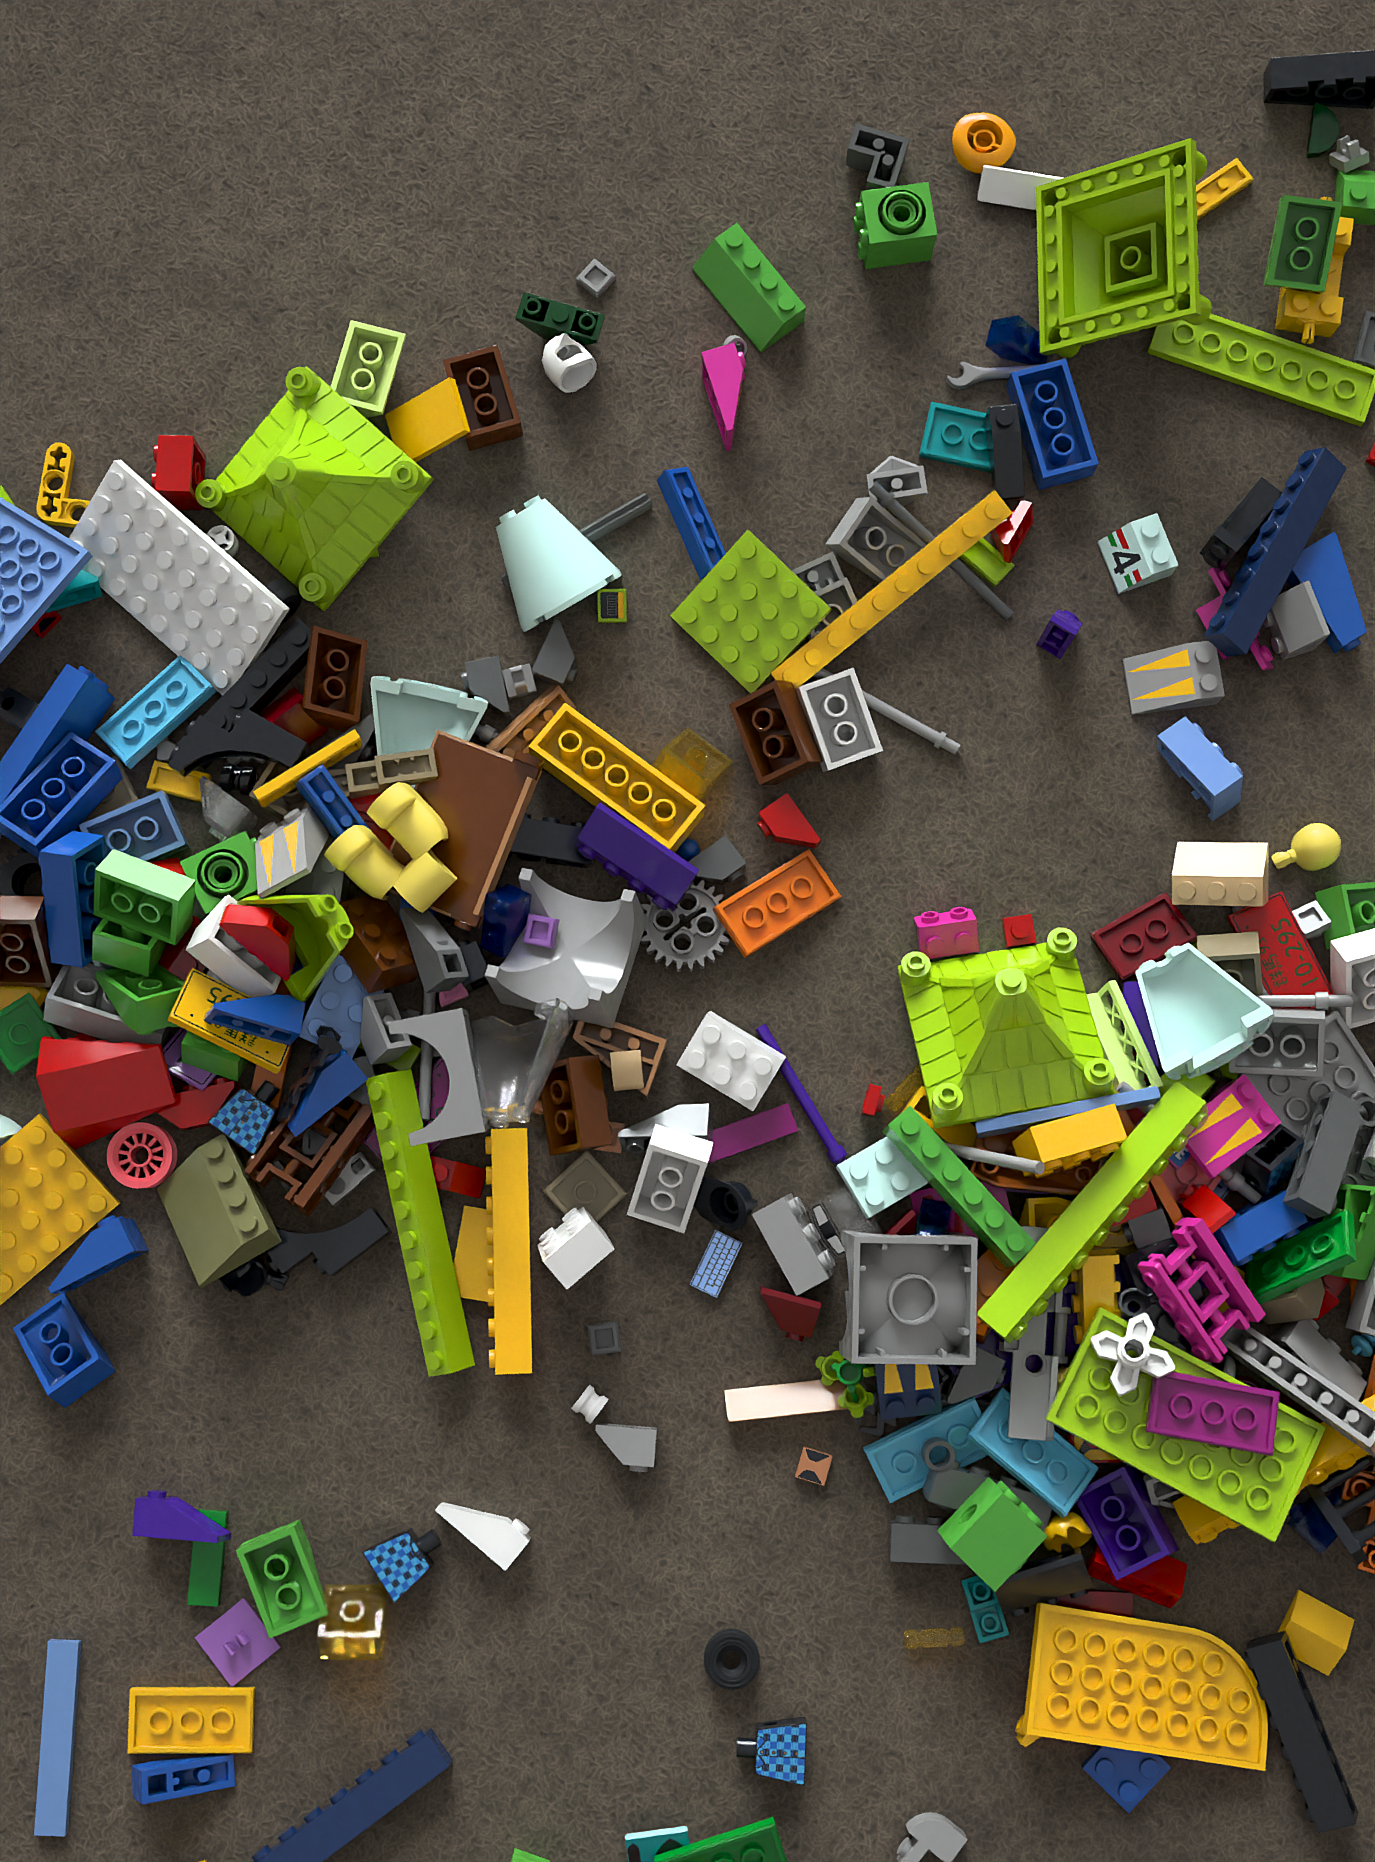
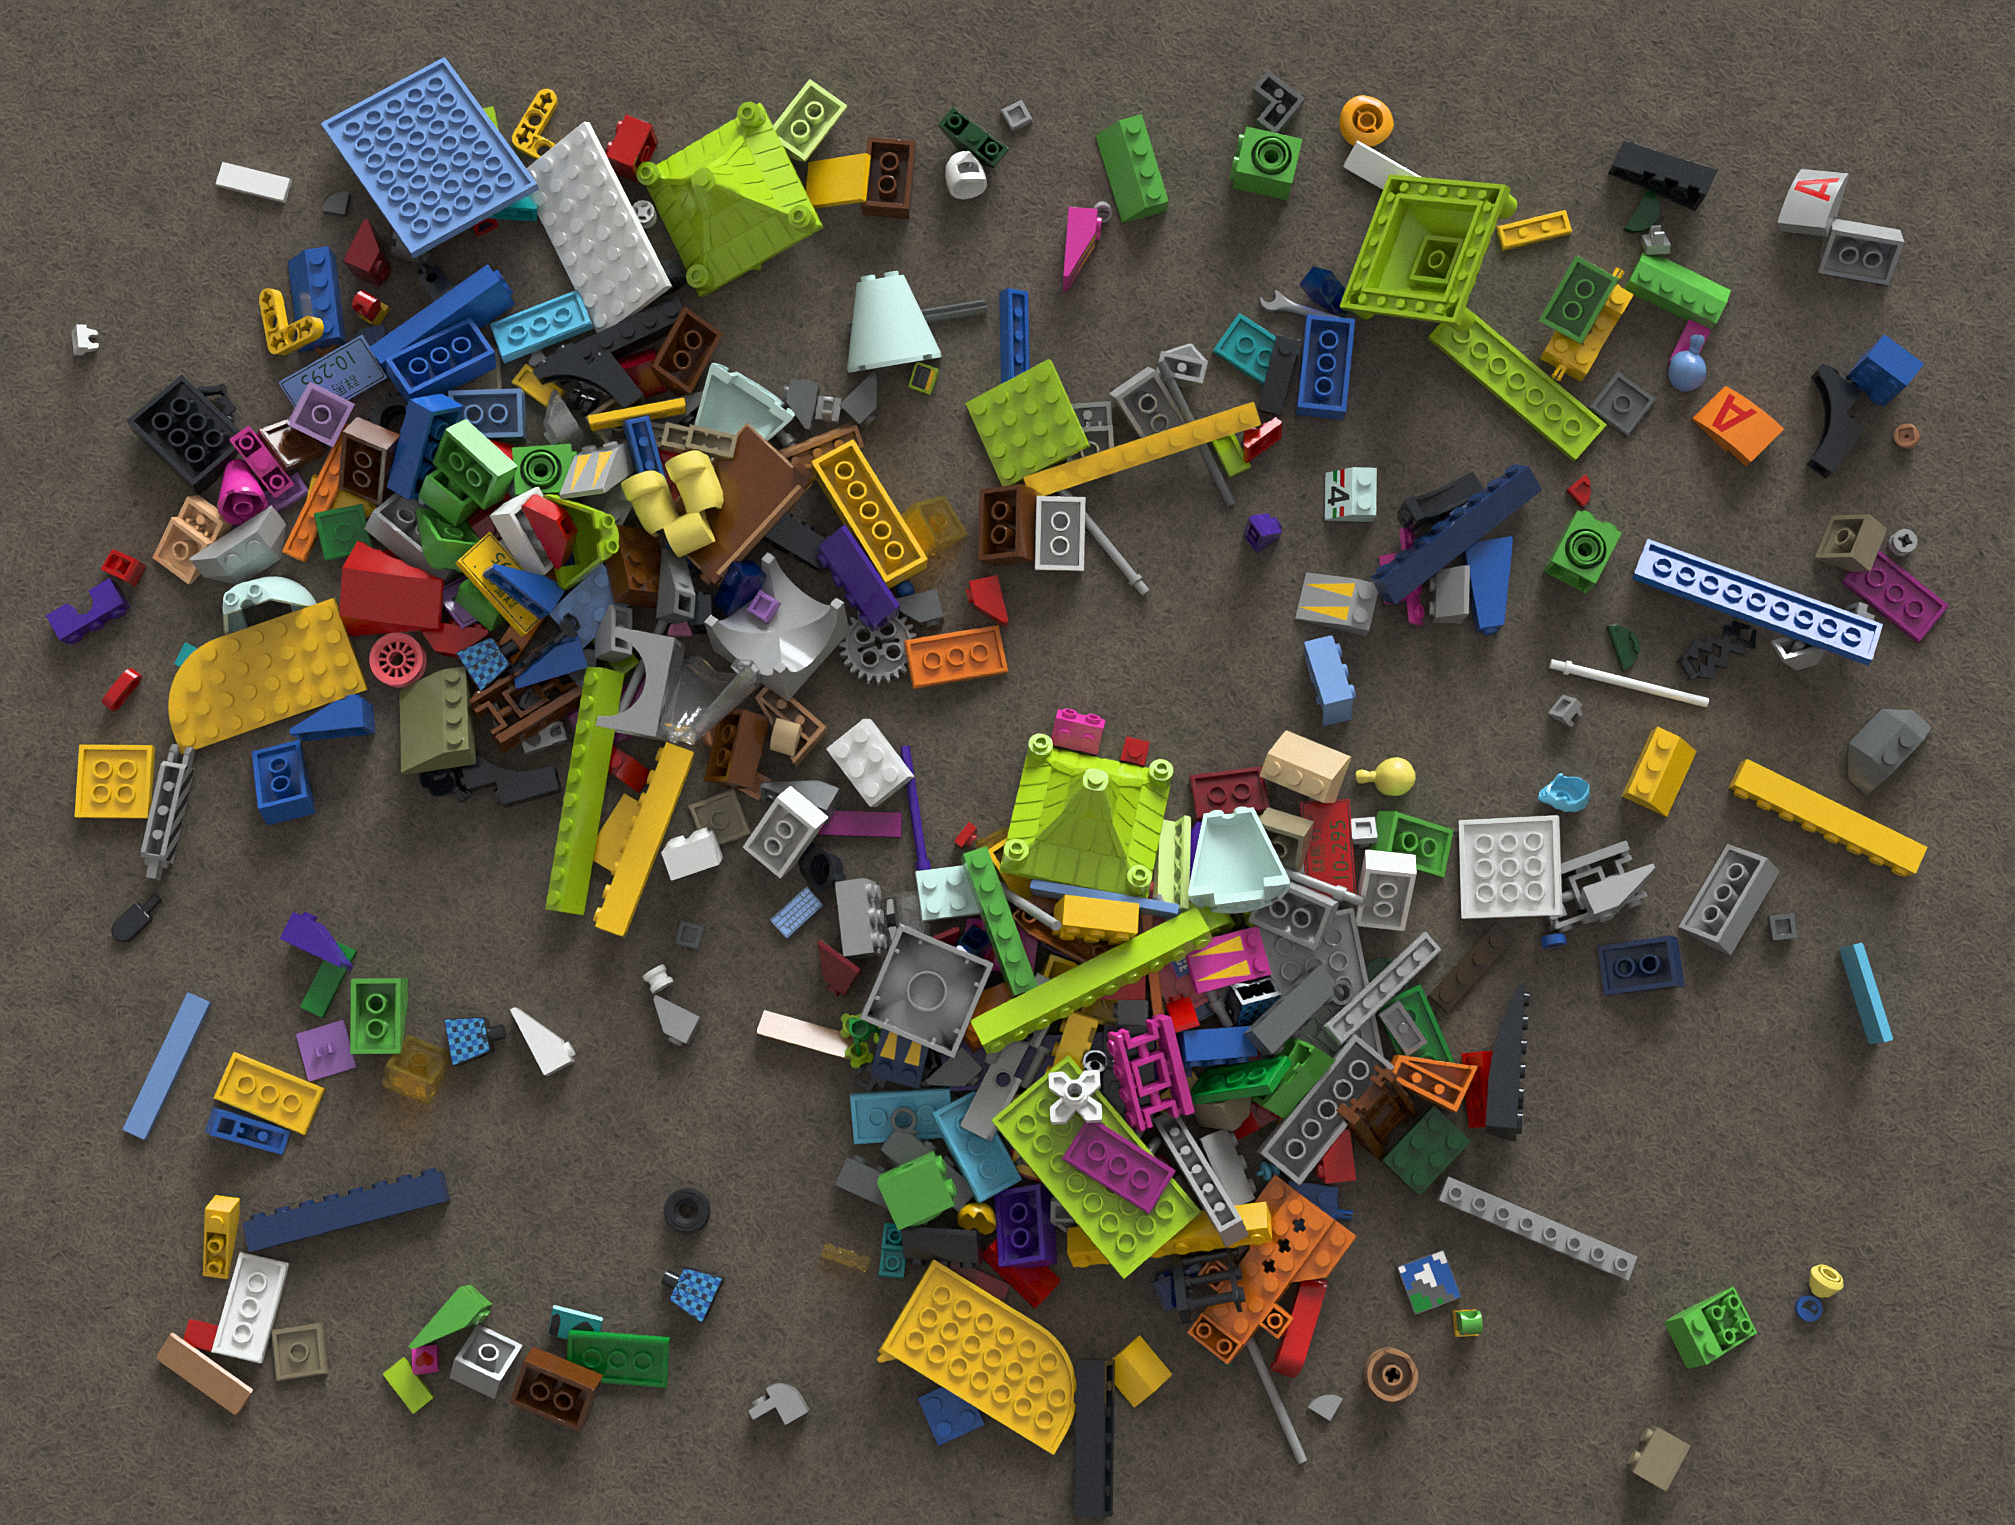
camera: 25 degrees right, 0 degrees up
(813, 1465) = (808, 1093): nougat tile -> none

